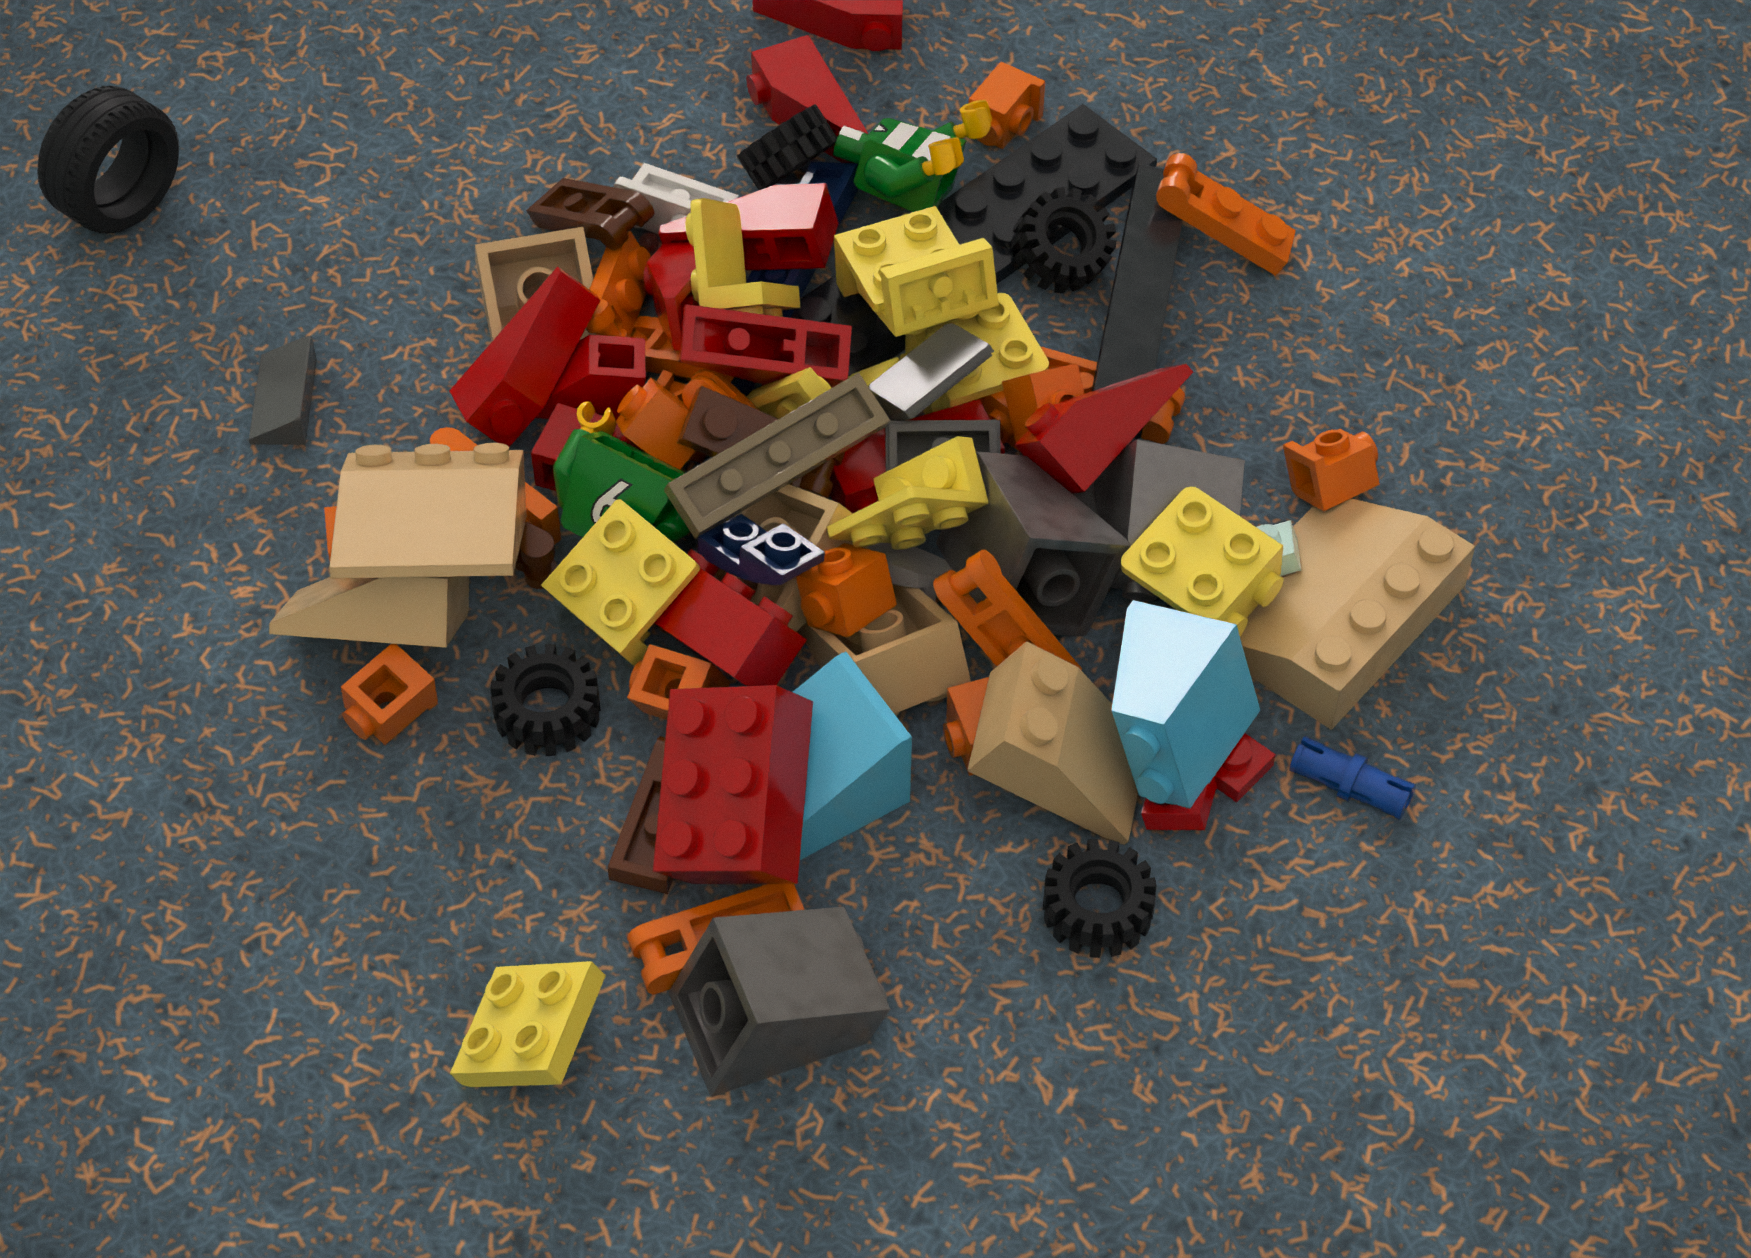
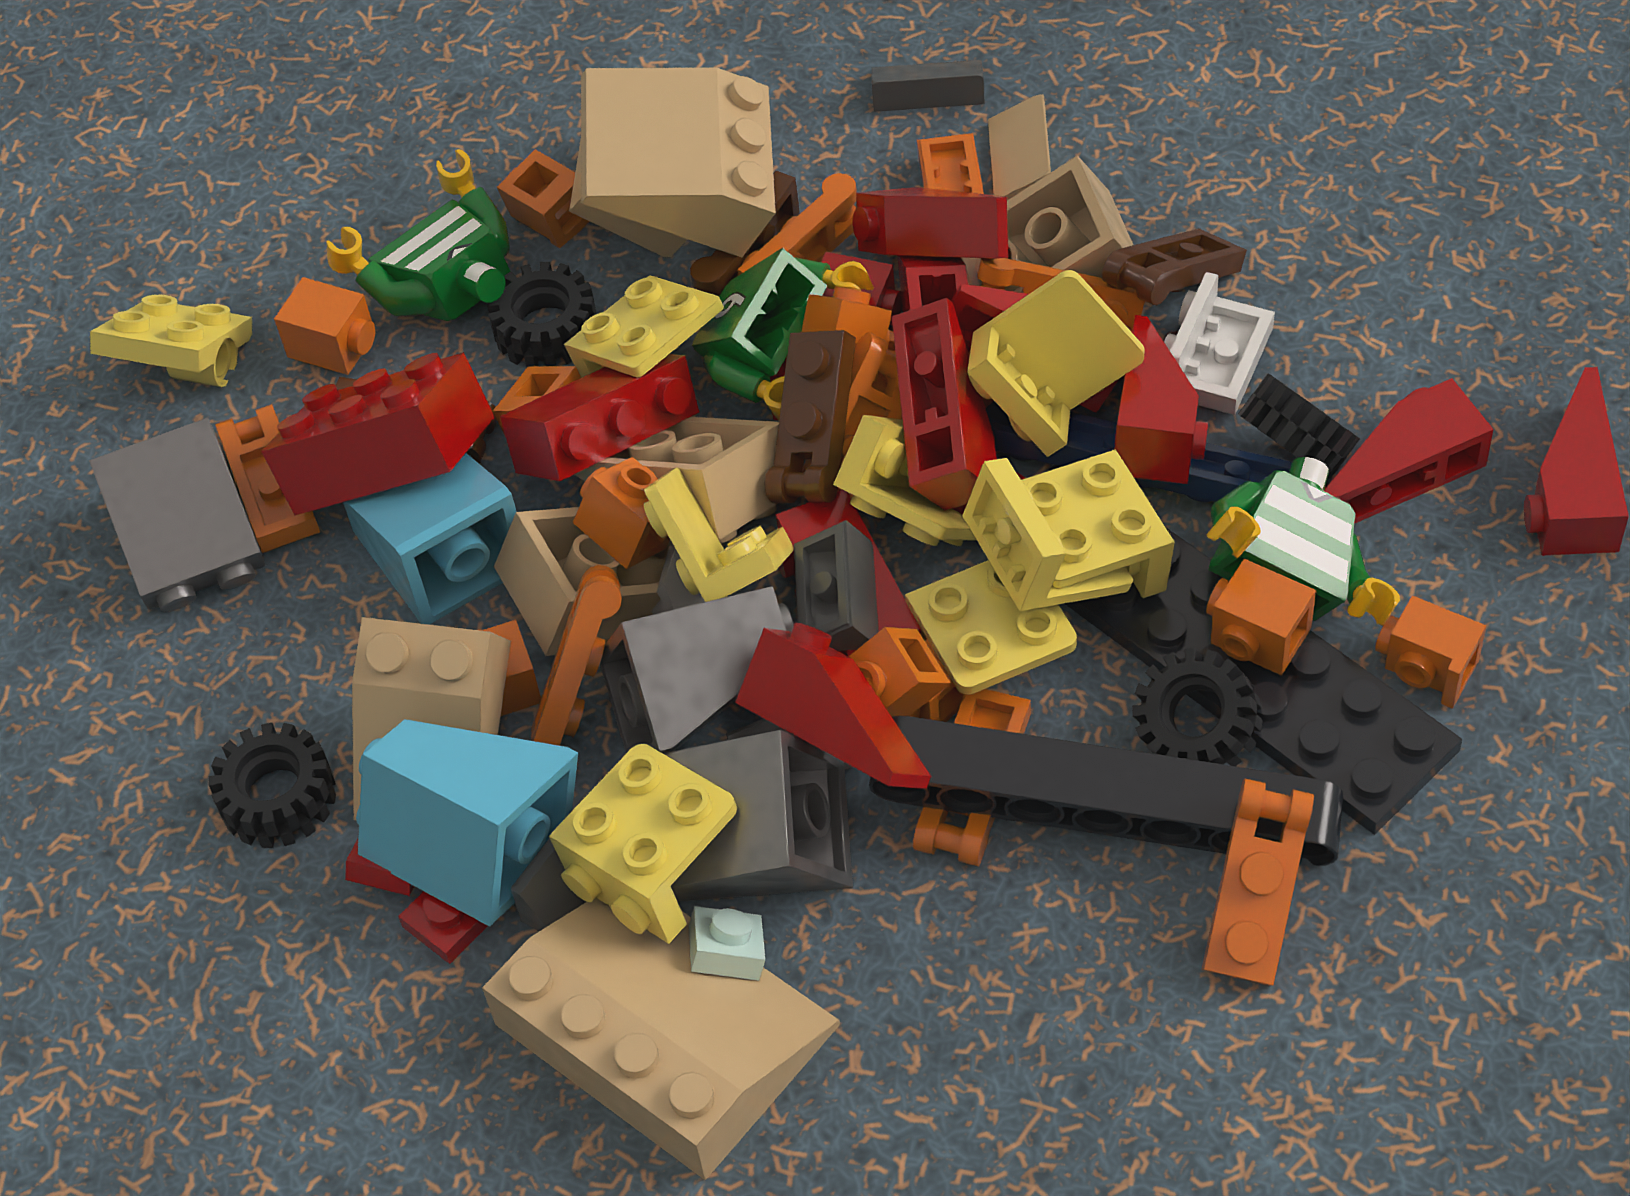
camera: 95 degrees right, 0 degrees up
(401, 325) = (1019, 147): none -> tan slope
(421, 376) = (950, 163): none -> orange plate
(465, 770) = (441, 261): none -> green torso
(540, 878) = (325, 326): none -> orange brick
(758, 555) = (655, 421): dark blue slope -> none
(776, 455) = (771, 416): dark tan plate -> none
(929, 371) = (911, 550): dark grey slope -> none
(988, 183) = (1260, 616): none -> orange brick
(1332, 467) = (853, 1009): orange brick -> none
(1352, 777) = (414, 1035): blue pin -> none

